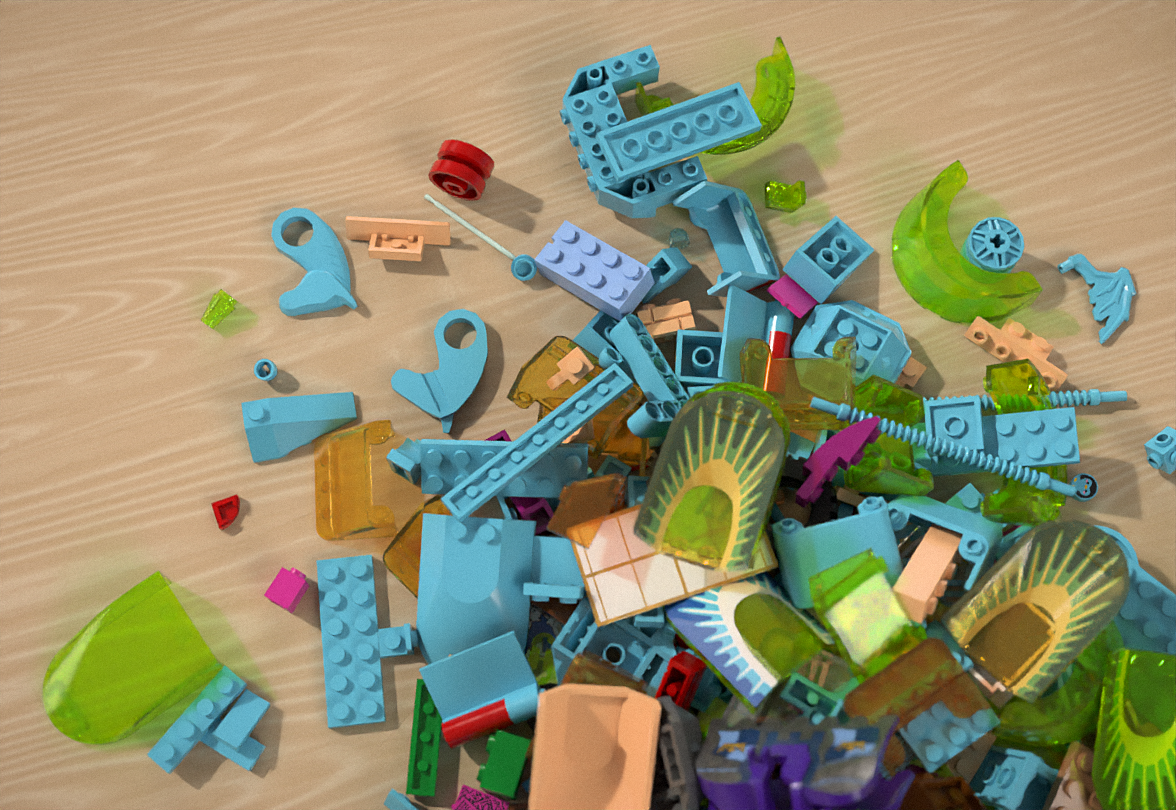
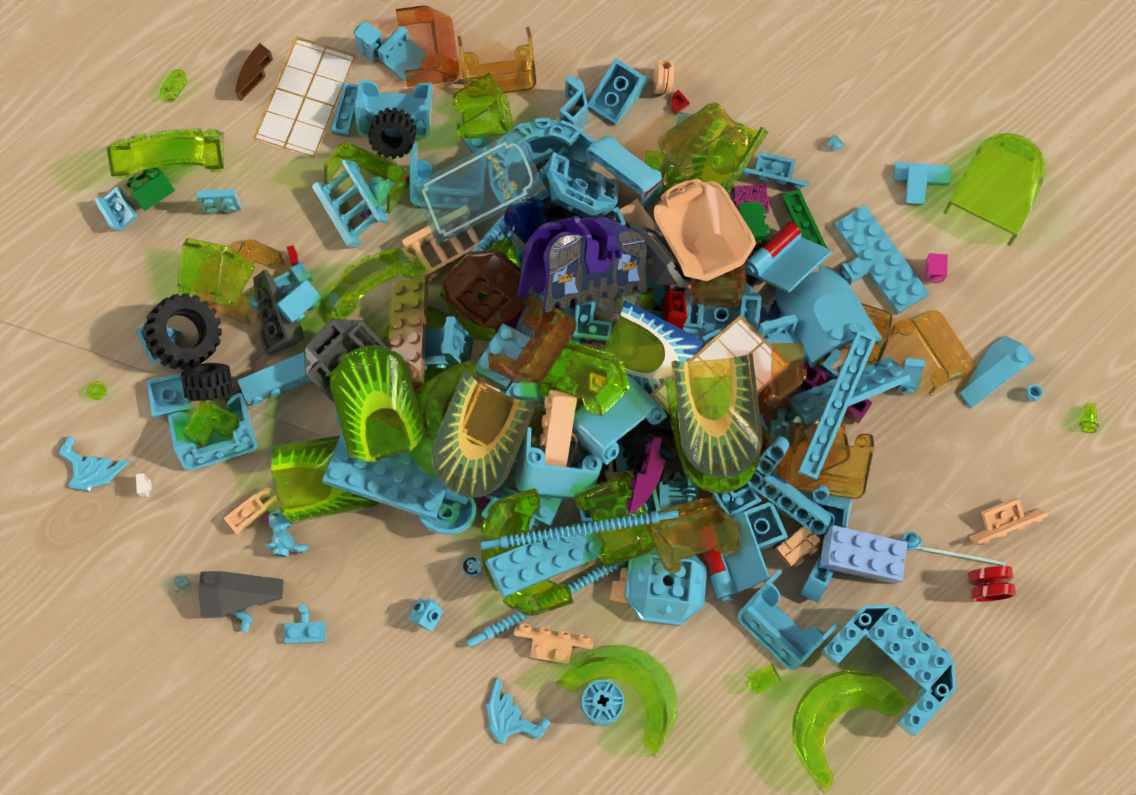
camera: 155 degrees right, 0 degrees up
(197, 719) = (941, 173): medium azure plate -> none
(226, 511) = (1002, 298): red tile -> none
(328, 273) = (1034, 475): medium azure animal -> none
(459, 371) = (912, 451): medium azure animal -> none
(548, 659) = (766, 298): clear neon green beam -> none
(573, 368) = (841, 472): light nougat plate -> none
(678, 131) = (860, 670): medium azure plate -> none
(678, 238) = (820, 613): clear light blue hinge -> none
(792, 296) = (722, 604): dark pink piece -> none
(827, 259) = (710, 647): medium azure slope -> none
(956, 421) = (576, 555): medium azure plate -> none

